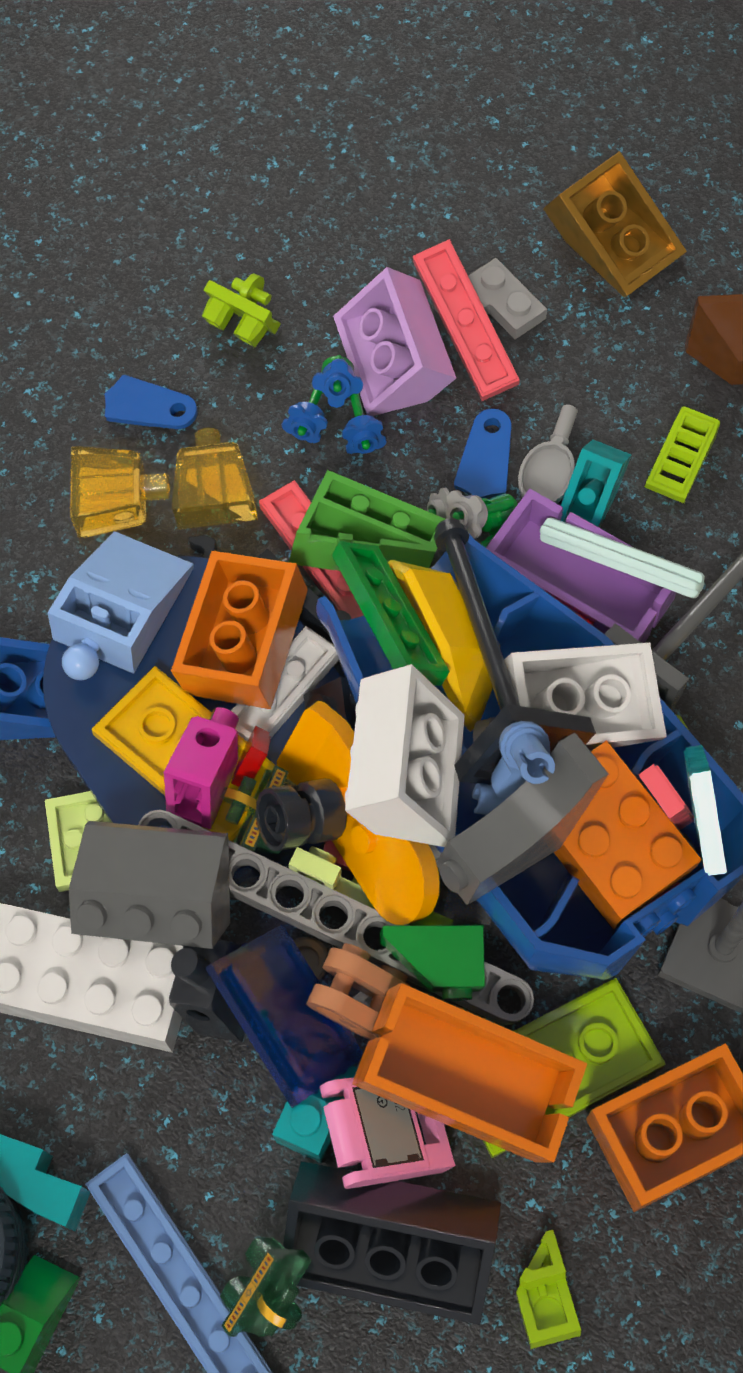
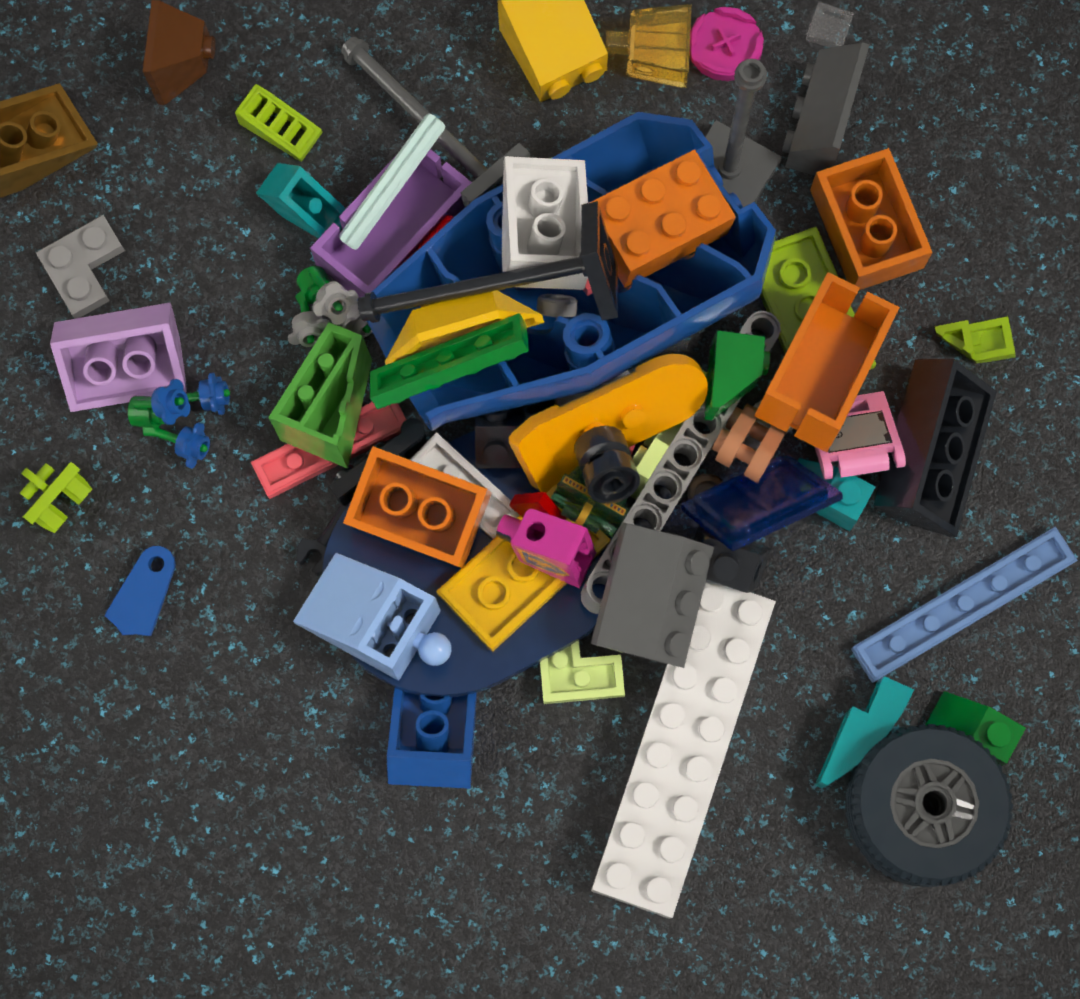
camera: 85 degrees left, 10 degrees up
(111, 490) = (236, 629): clear yellow torso -> none
(211, 484) = (243, 535): clear yellow torso -> none
(268, 1296) = (979, 552): clear green hips -> none
(405, 758) = (597, 355): white slope -> none
(466, 320) = (105, 286): coral tile -> none
(486, 456) = (251, 290): blue piece -> none
(523, 826) = (669, 265): dark grey arch -> none
(524, 755) = (620, 258): medium blue arm -> none
(551, 463) = (271, 236): light grey piece -> none
(667, 796) = (643, 164): coral tile -> none
(704, 810) = (651, 140): tile -> none

